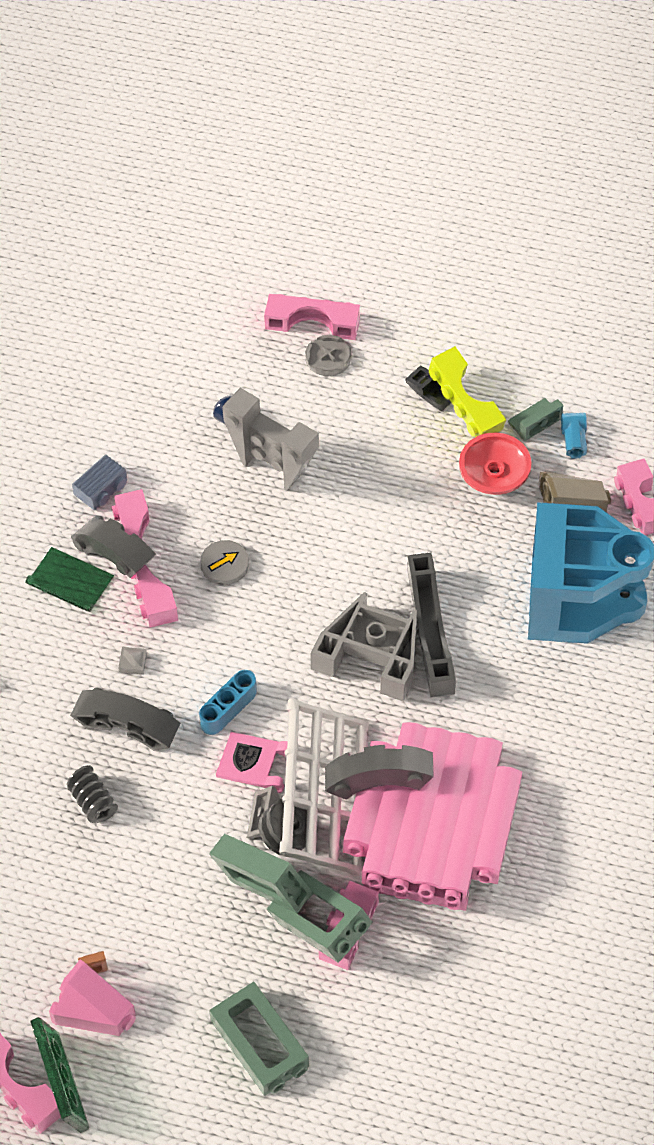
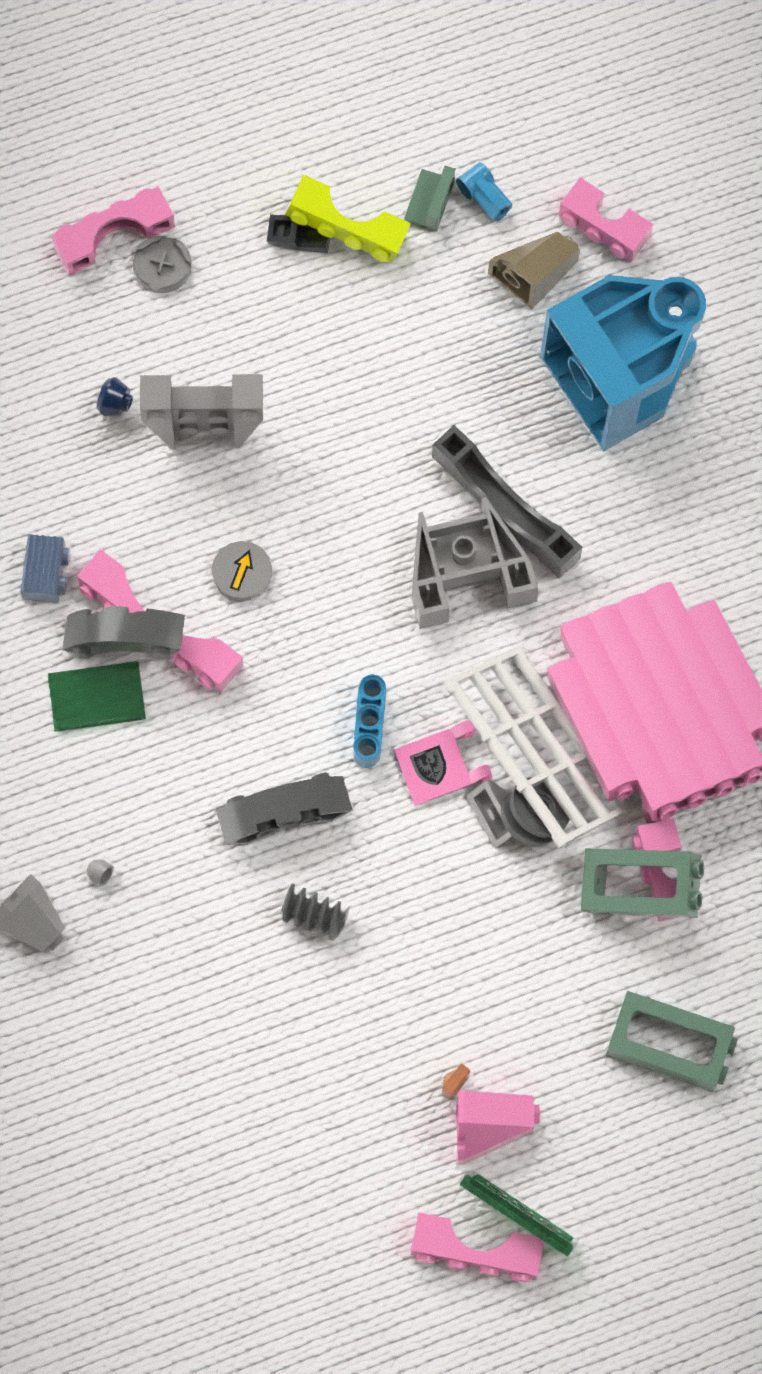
camera: 40 degrees left, 15 degrees up
(132, 660) = (235, 741): light grey tile -> none
(261, 873) = (555, 880): sand green piece -> none
(378, 767) = (586, 695): dark grey brick -> none
(495, 454) = (441, 265): coral dish -> none

